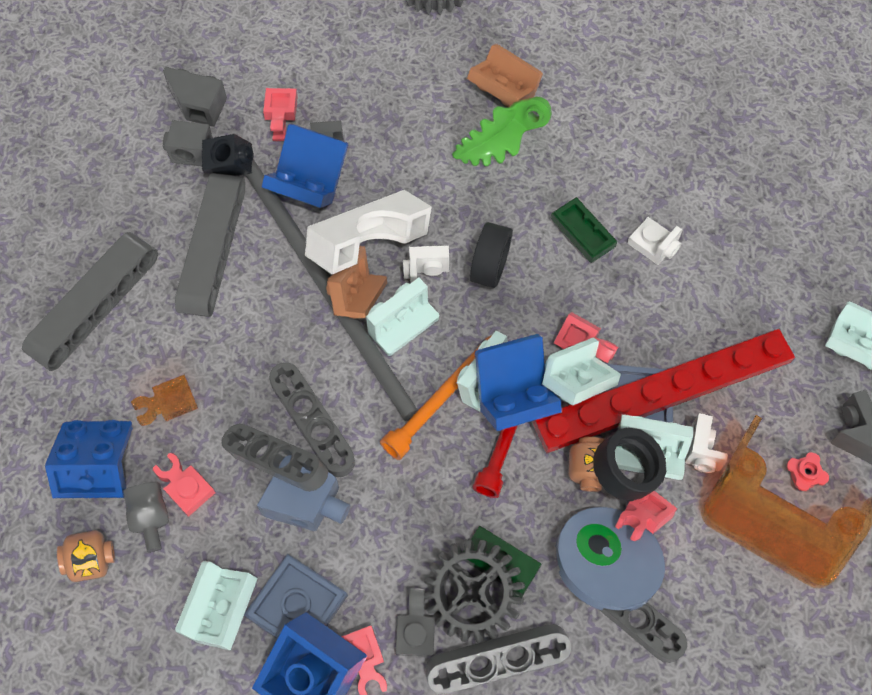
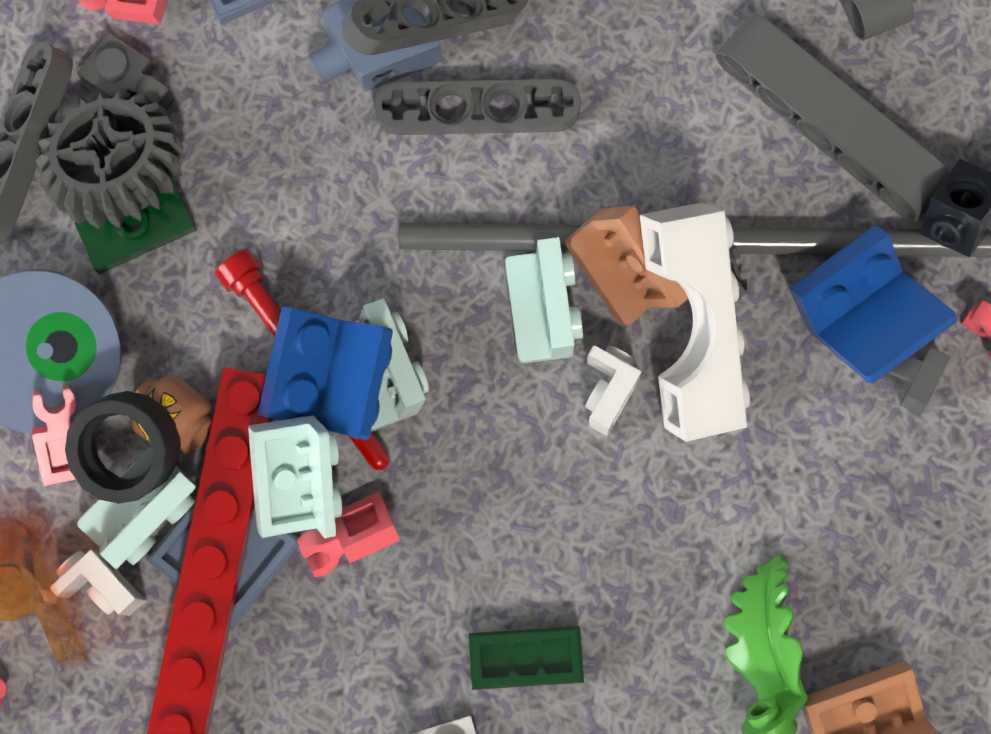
camera: 125 degrees right, 15 degrees up
(398, 441) = (371, 194): orange piece -> none
(491, 254) = (558, 481): black tyre -> none

